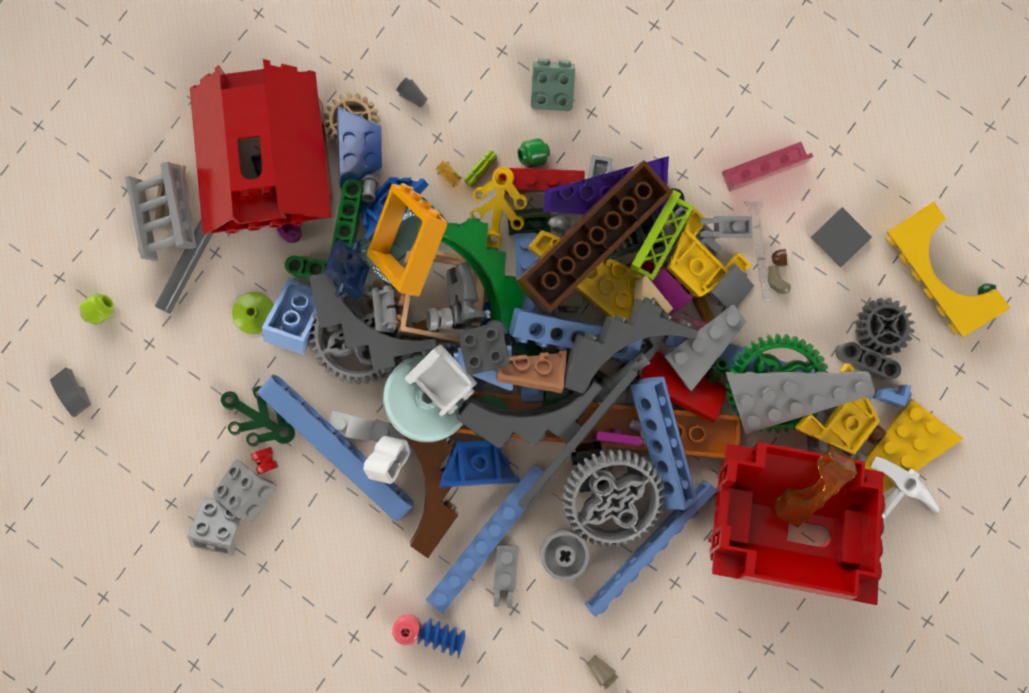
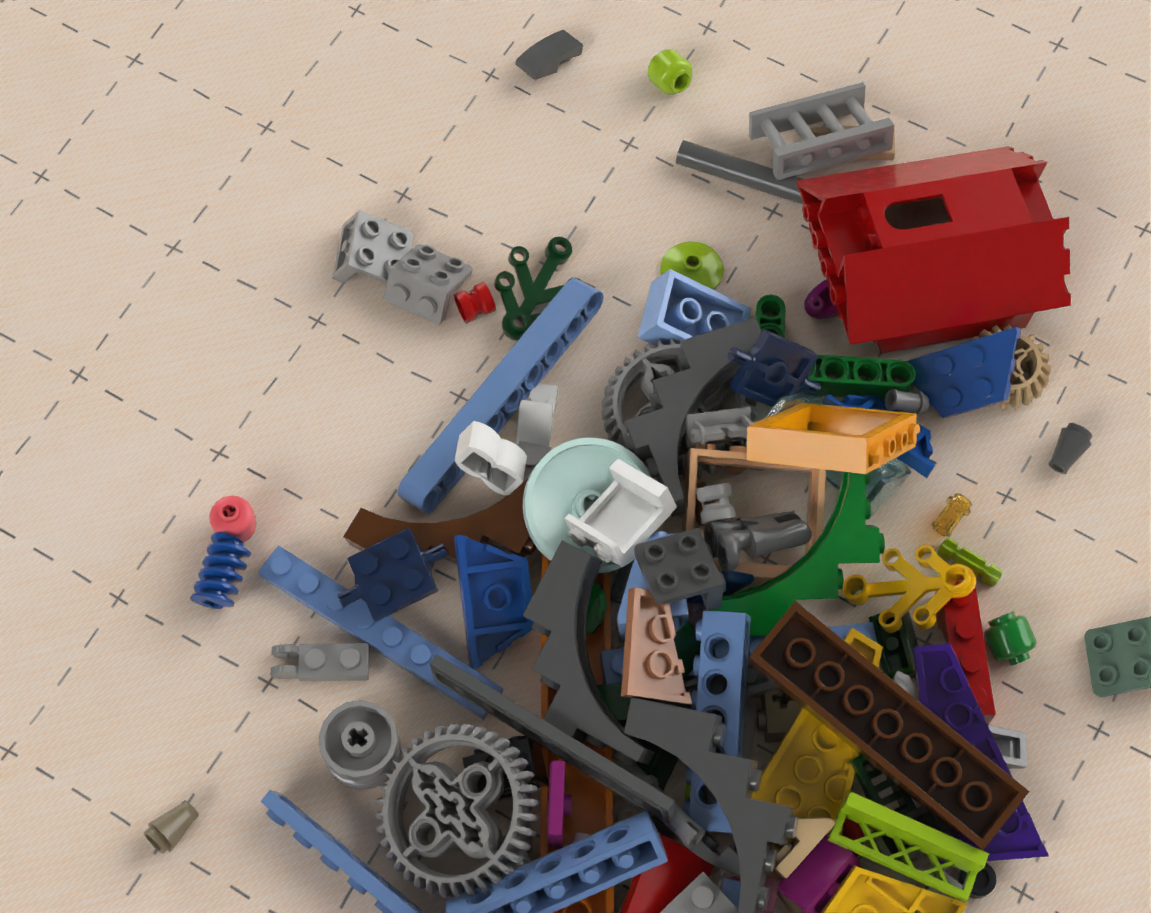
camera: 85 degrees right, 20 degrees down
(458, 528) = (392, 574): none -> dark blue plate

